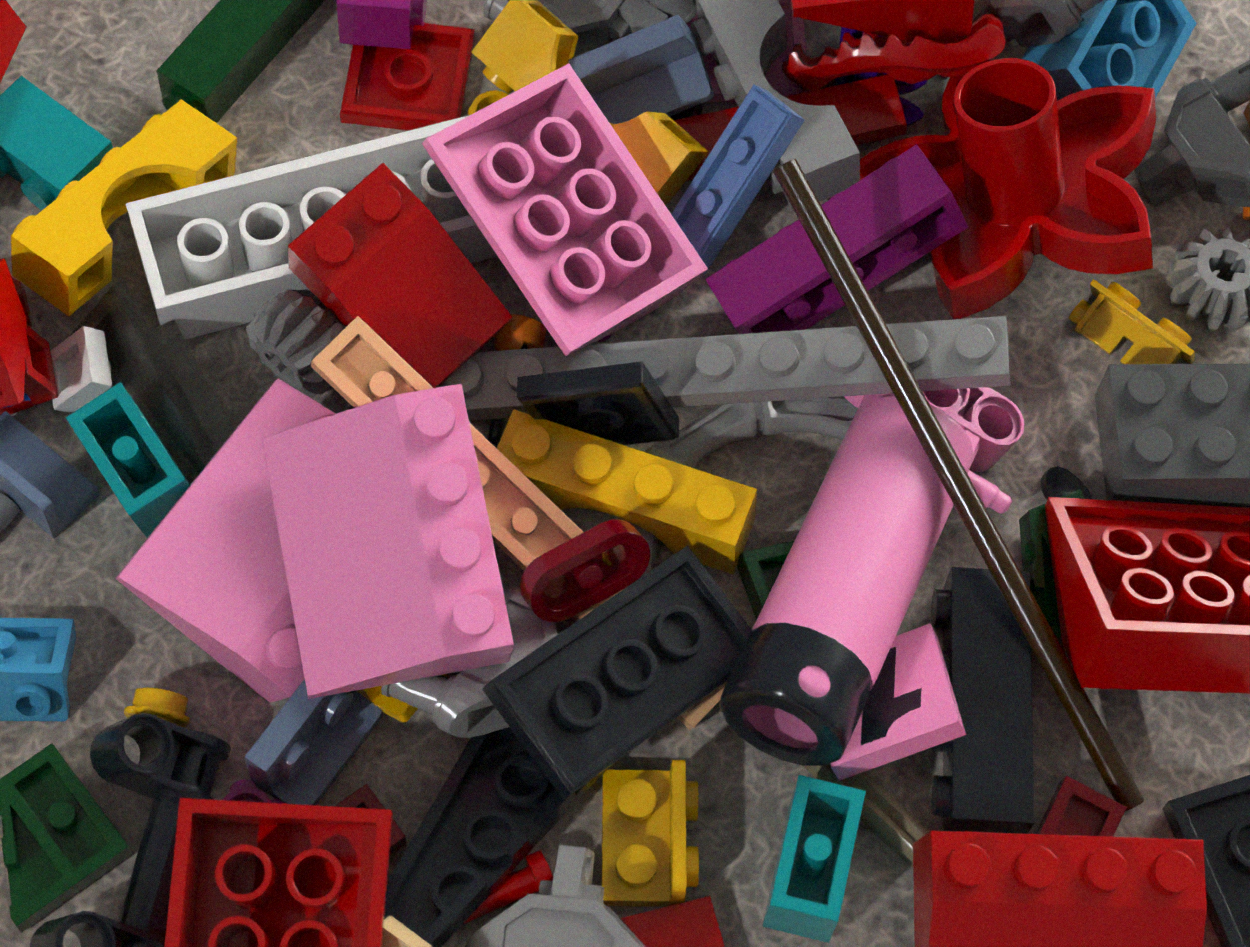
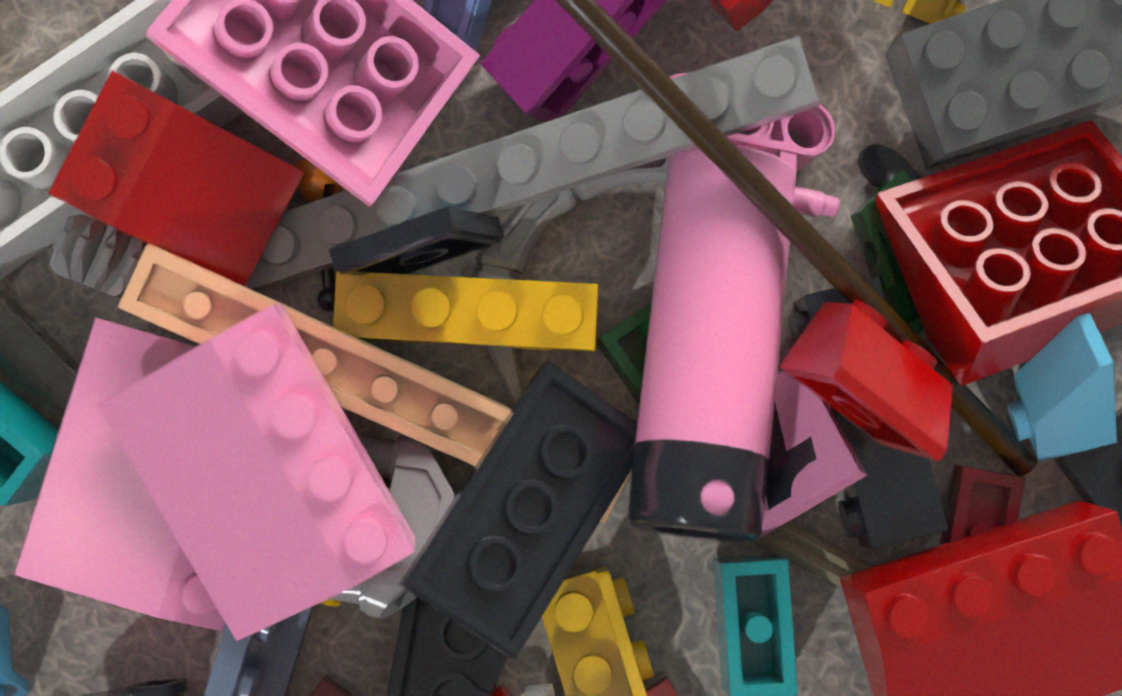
camera: 10 degrees left, 20 degrees up
(161, 703) = (107, 667): yellow plate -> none
(581, 573) = (458, 427): dark red plate -> none
(991, 638) = (873, 379): none -> red slope
(1184, 733) = (1066, 394): none -> medium azure slope

